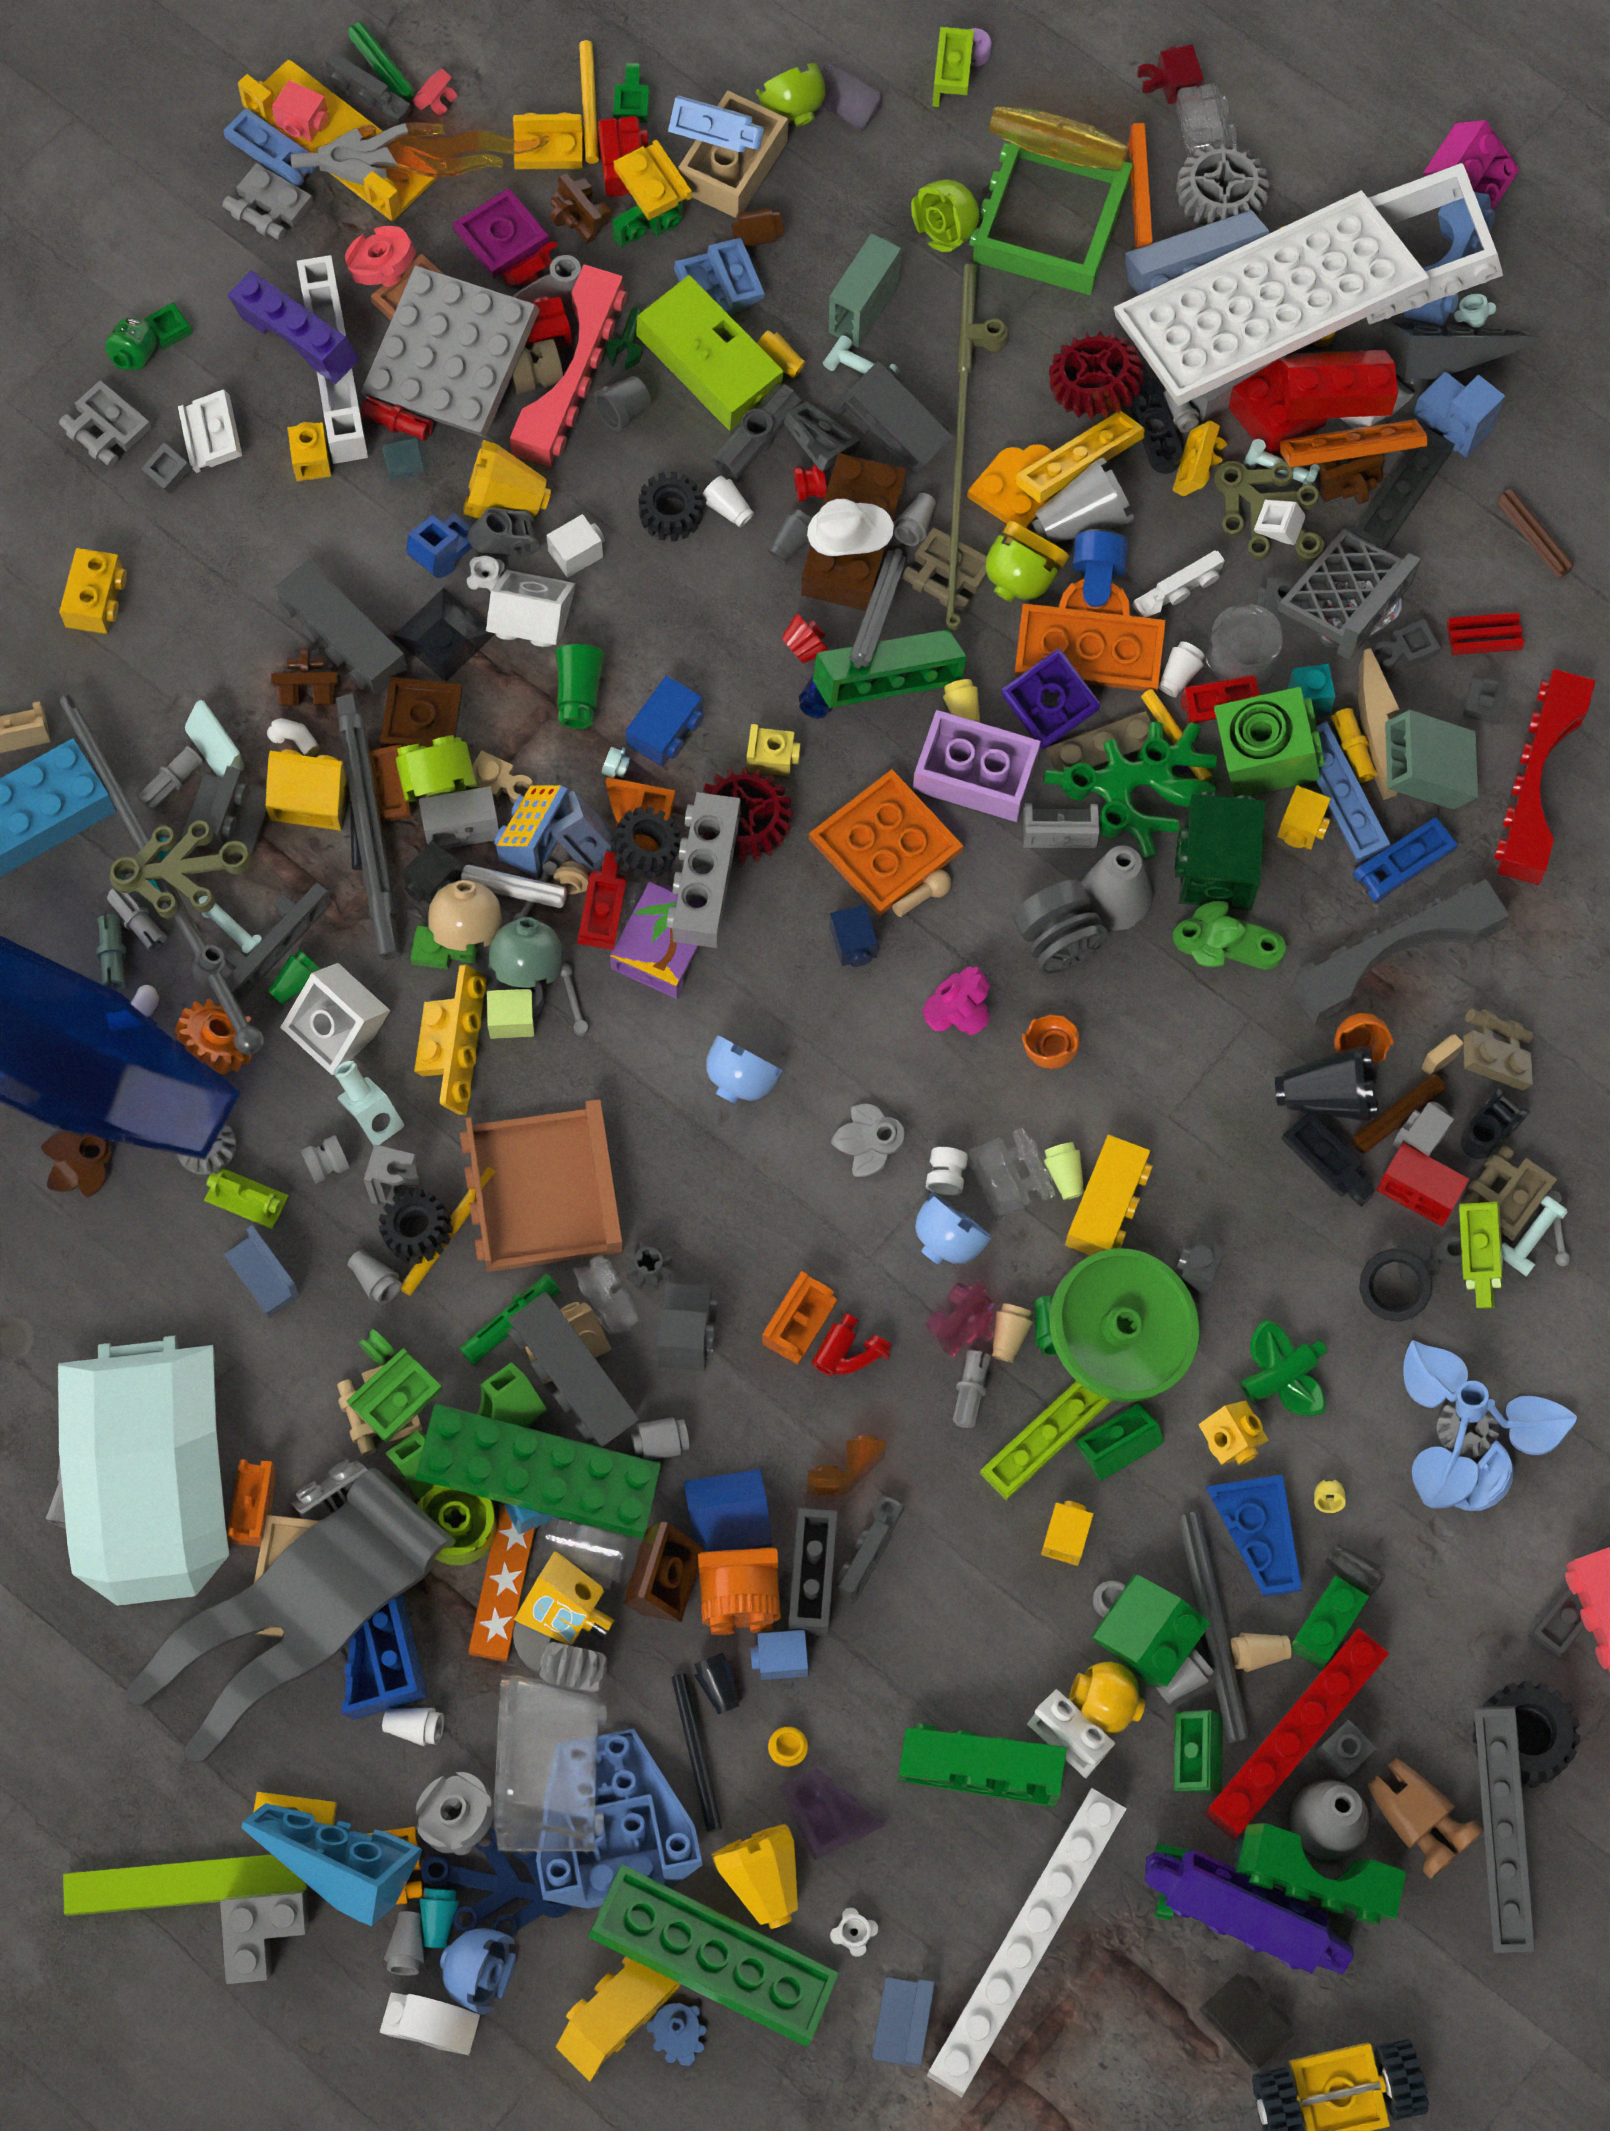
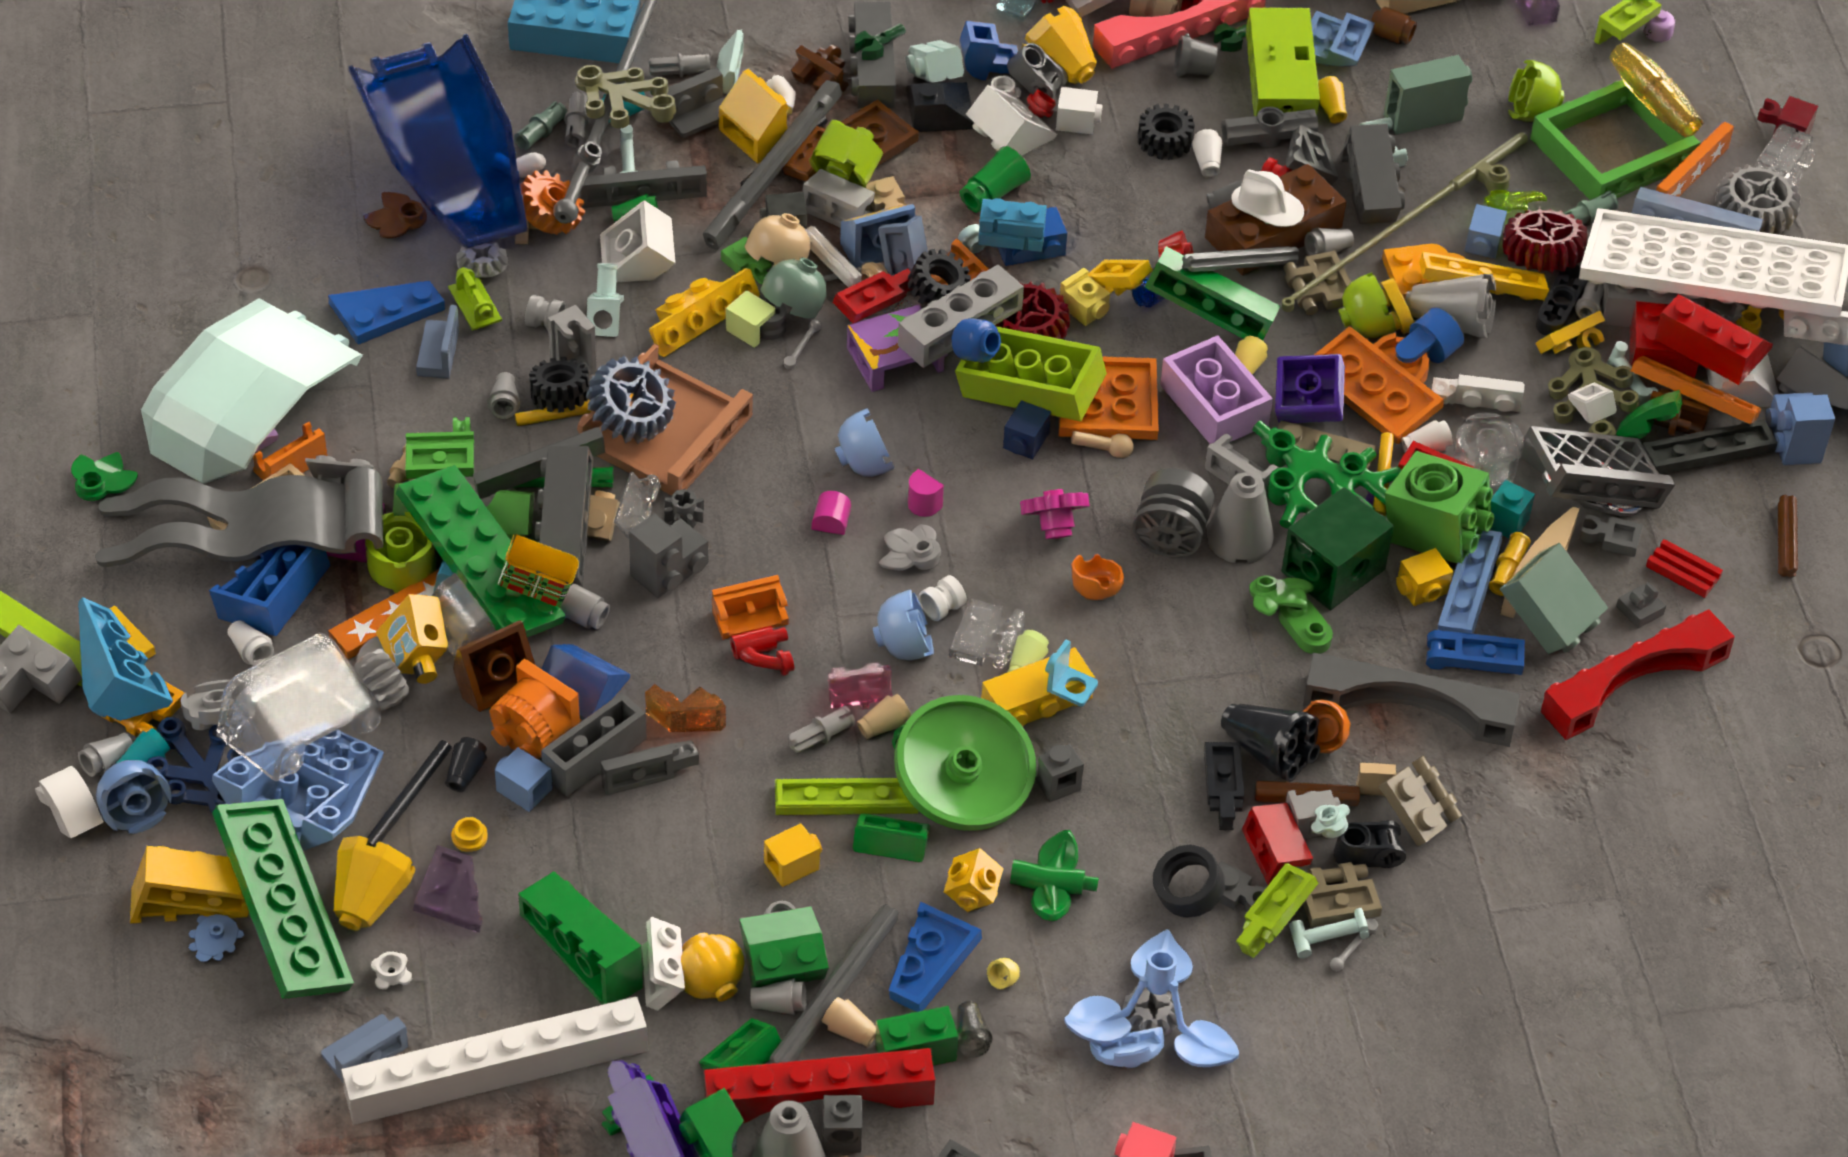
camera: 40 degrees right, 20 degrees down
(100, 1664) = (101, 477): none -> green plate
(170, 1272) = (385, 309): none -> blue wing
(344, 617) = (874, 44): none -> dark green bar
(408, 595) = (935, 61): none -> light aqua brick
(491, 1330) = (528, 466): none -> dark grey tile
(502, 1217) = (610, 399): none -> sand blue gear
(536, 563) = (1041, 104): none -> red plate
(591, 1446) = (531, 556): none -> piece
(660, 733) = (1012, 224): none -> dark azure brick
(754, 891) = (975, 340): none -> blue head
(770, 1161) = (832, 513): none -> dark pink brick
(787, 705) = (1120, 274): none -> yellow plate
(814, 878) = (1037, 370): none -> lime brick
(831, 1076) = (924, 494): none -> dark pink brick
(1029, 348) = (1512, 200): none -> clear neon green plate
(1035, 402) = (1485, 231): none -> medium blue brick
(1096, 309) = (1587, 210): none -> sand green pin
(1126, 1169) = (1061, 674): none -> medium azure bracket
(1341, 495) = (1640, 420): none -> green slope
(1469, 1137) = (1331, 820): none -> light aqua plate

